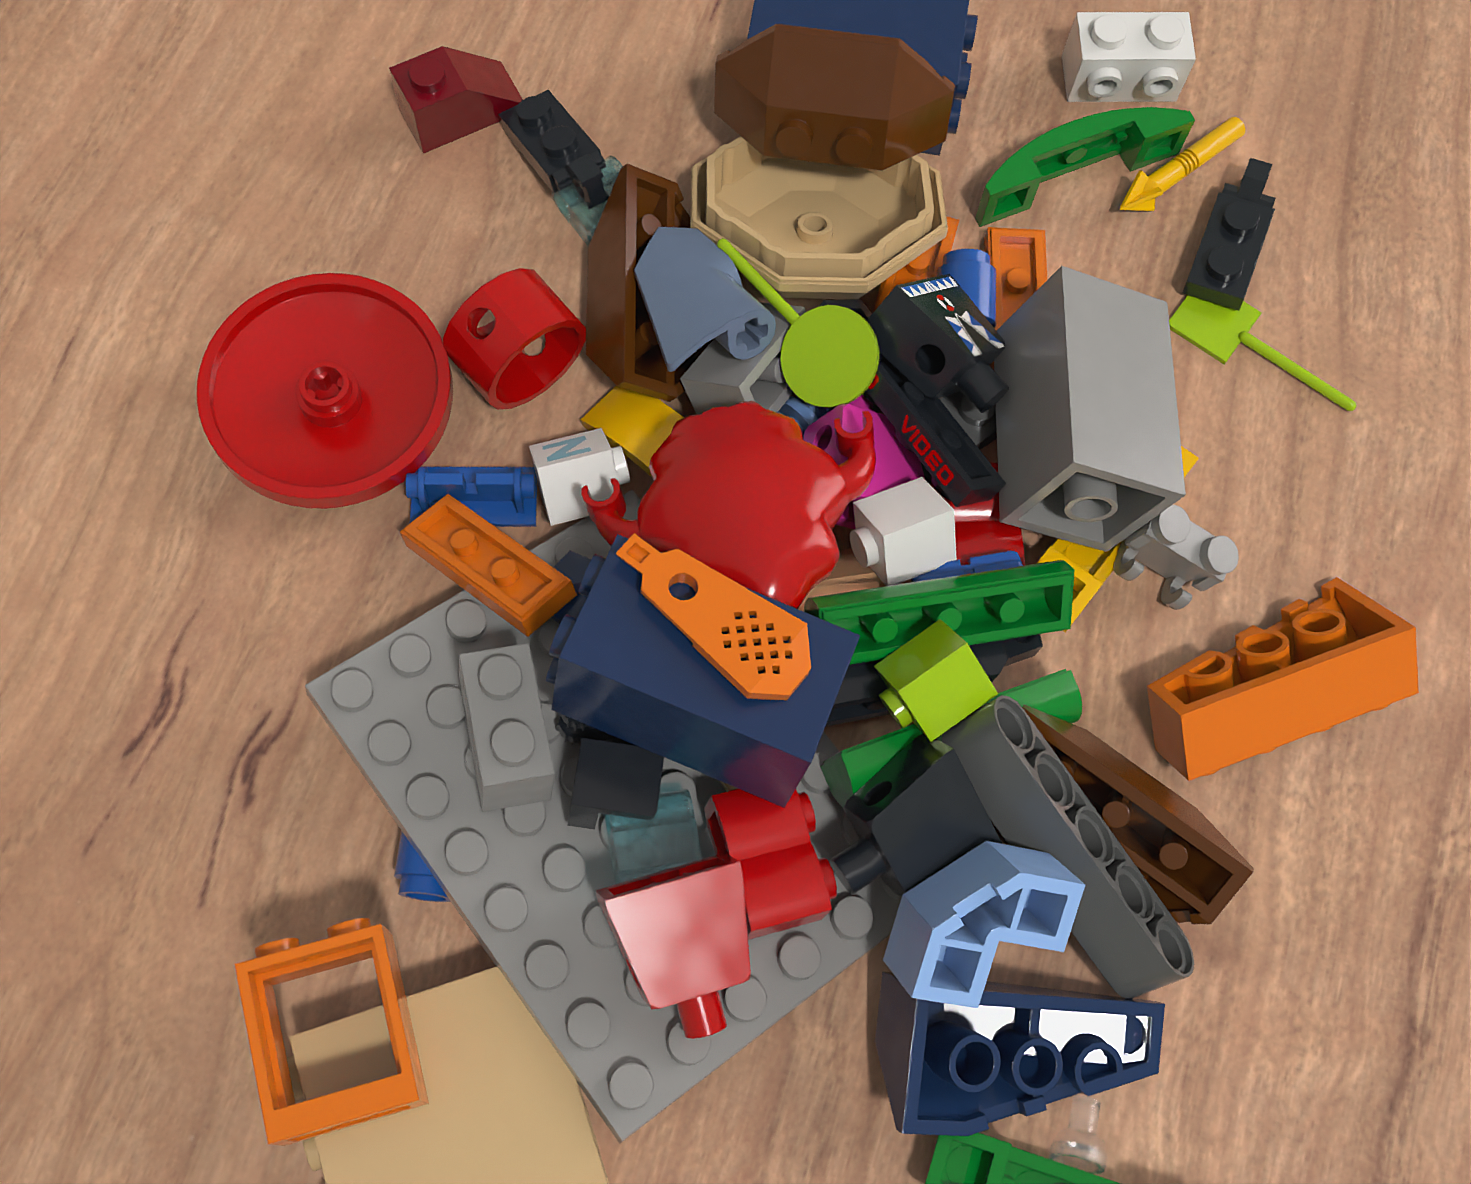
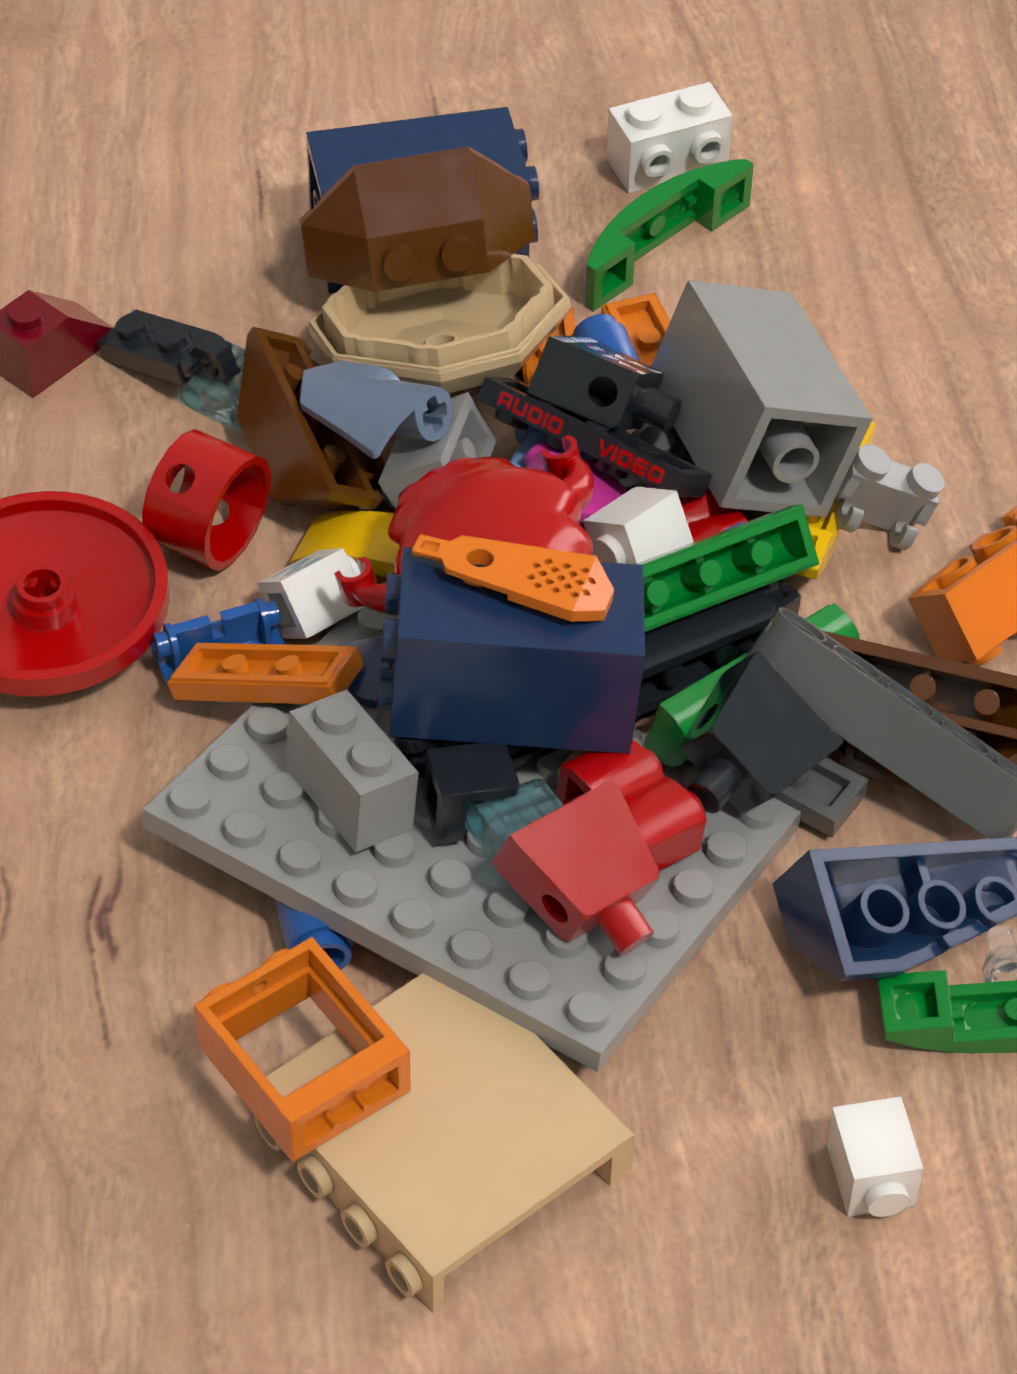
camera: 15 degrees left, 20 degrees down
(826, 351) = (503, 415): lime piece -> none
(934, 681) = (718, 619): lime brick -> none
(959, 915) = (820, 787): light blue brick -> none
(1147, 188) = (733, 236): yellow piece -> none
(1220, 331) = (851, 323): lime piece -> none
(1233, 240) = (829, 253): black hinge -> none

